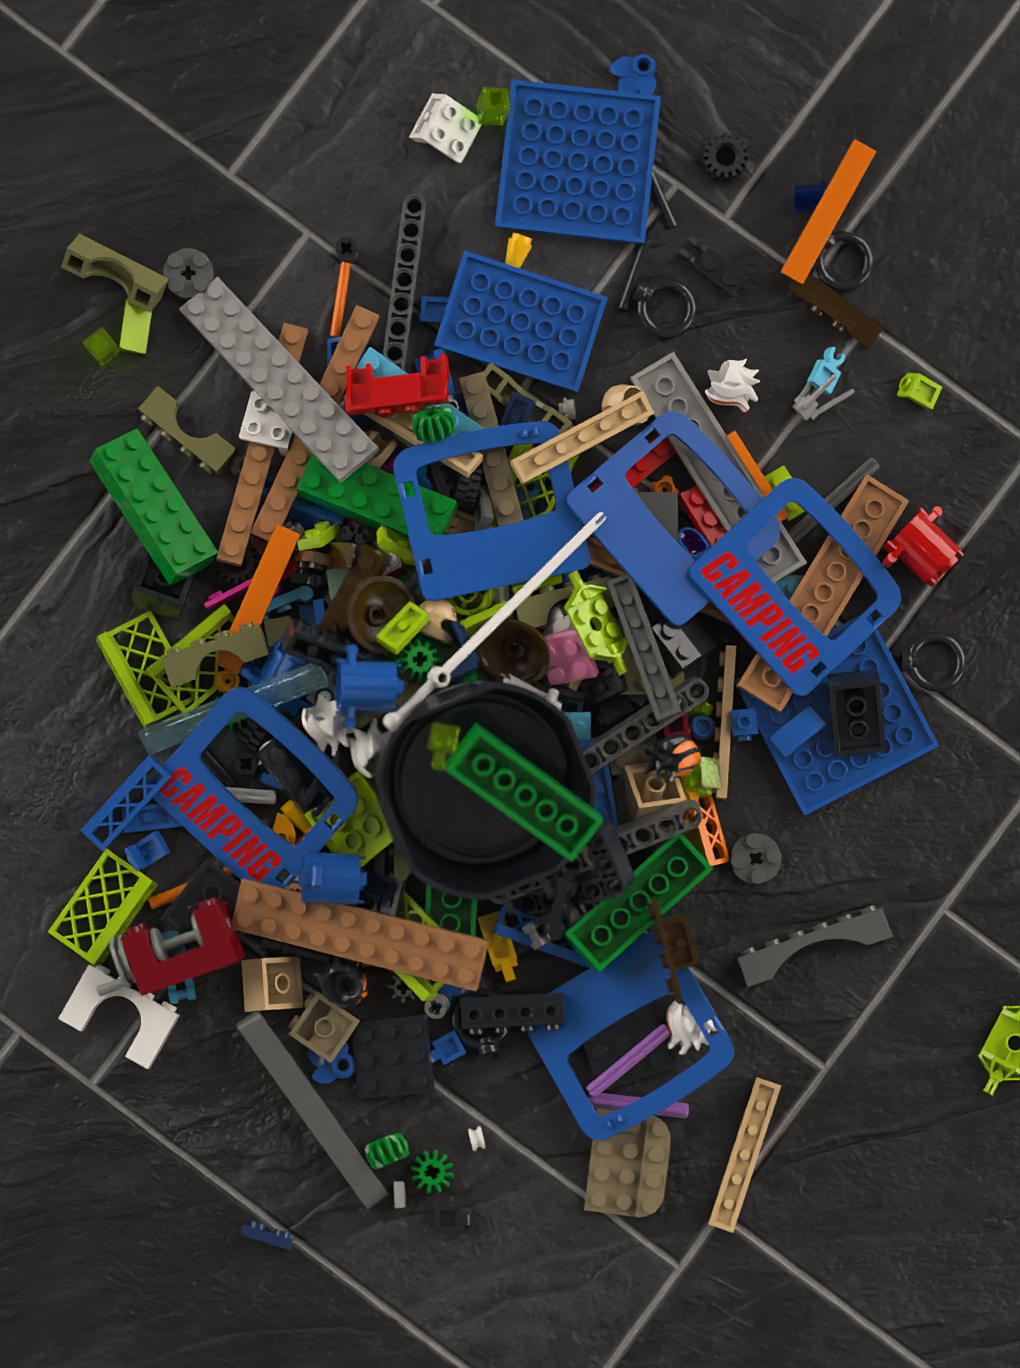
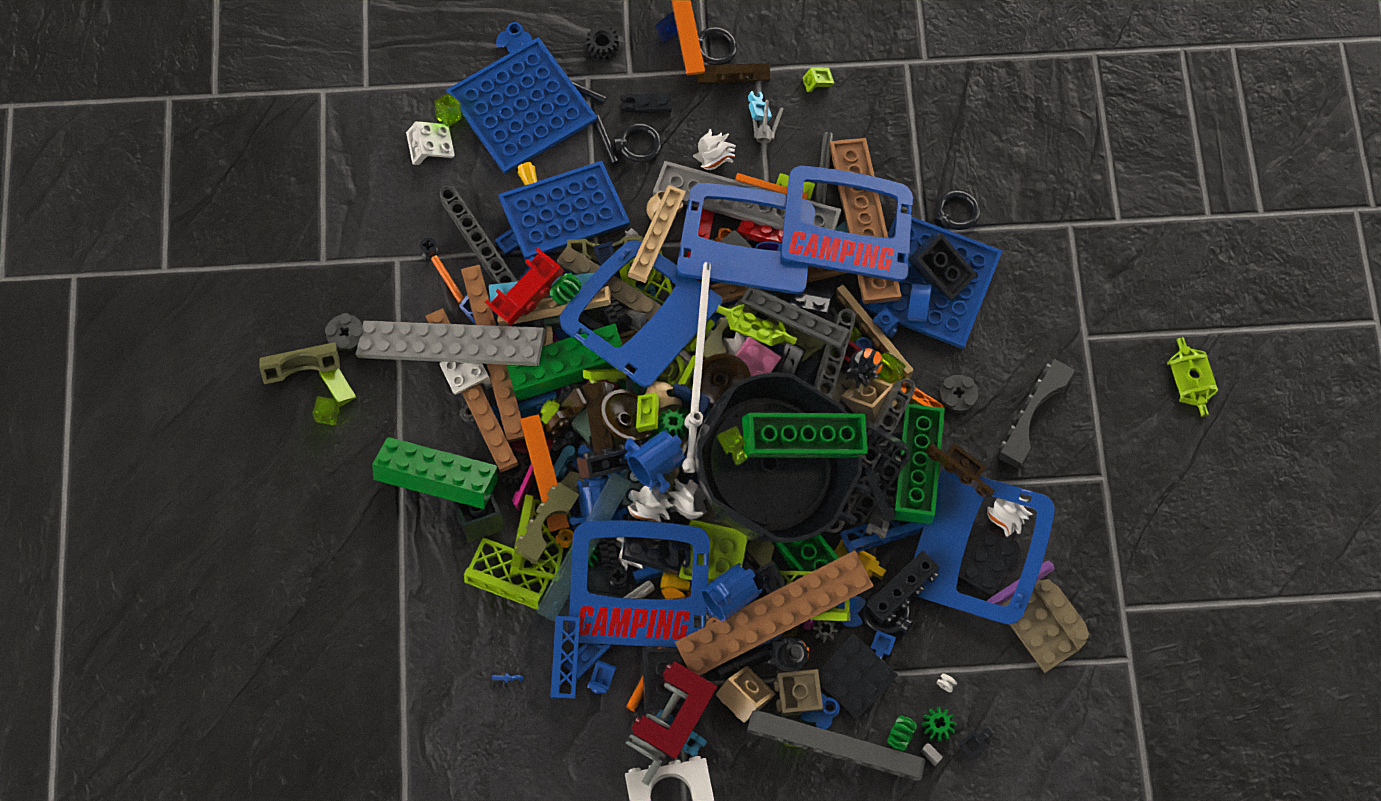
camera: 40 degrees left, 15 degrees down
(58, 773) = (506, 678): none -> blue hand
(120, 920) = (620, 729): lime fence -> none
(211, 451) = (443, 419): olive arch -> none
(434, 1013) = (859, 622): light grey bush -> none
(628, 1060) = (993, 561): medium lavender axle -> none
(744, 1154) = (1106, 562): tan plate -> none
(923, 547) = (897, 153): red container -> none

